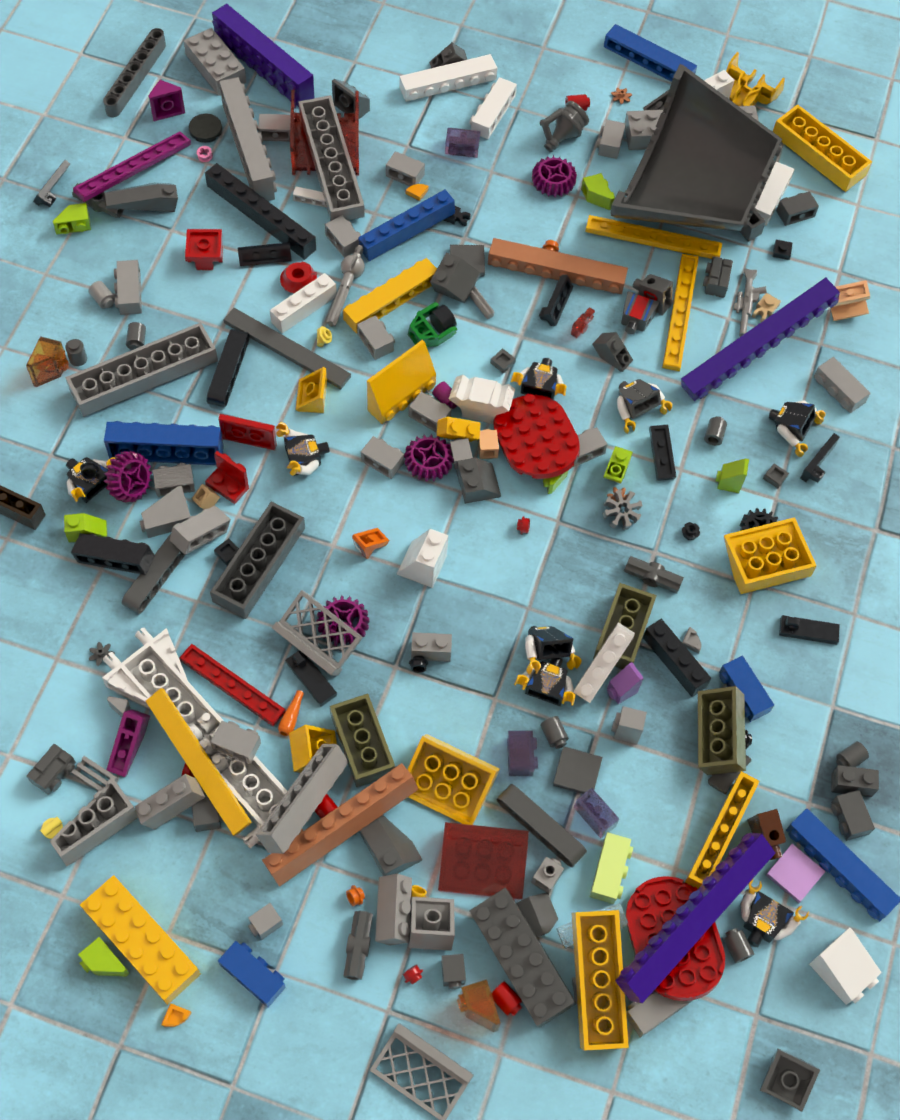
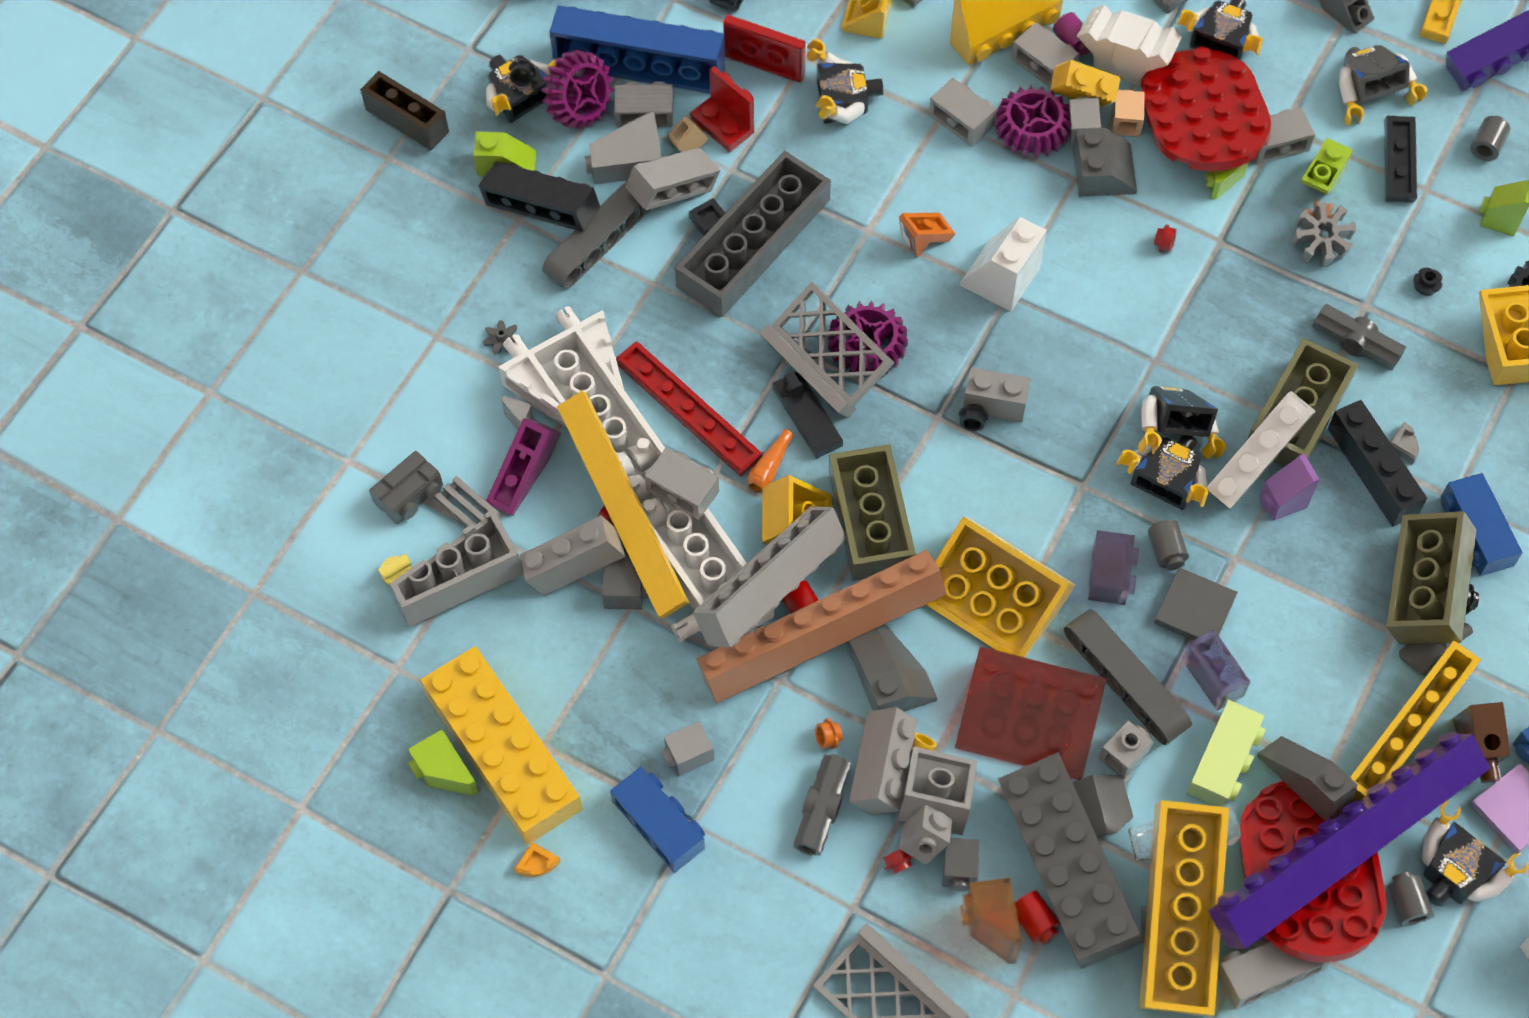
camera: 15 degrees right, 0 degrees up
(428, 955) = (925, 834): none -> light grey brick
(629, 725) = (1286, 549): light grey brick -> none
(665, 875) = (1310, 776): none -> dark grey slope

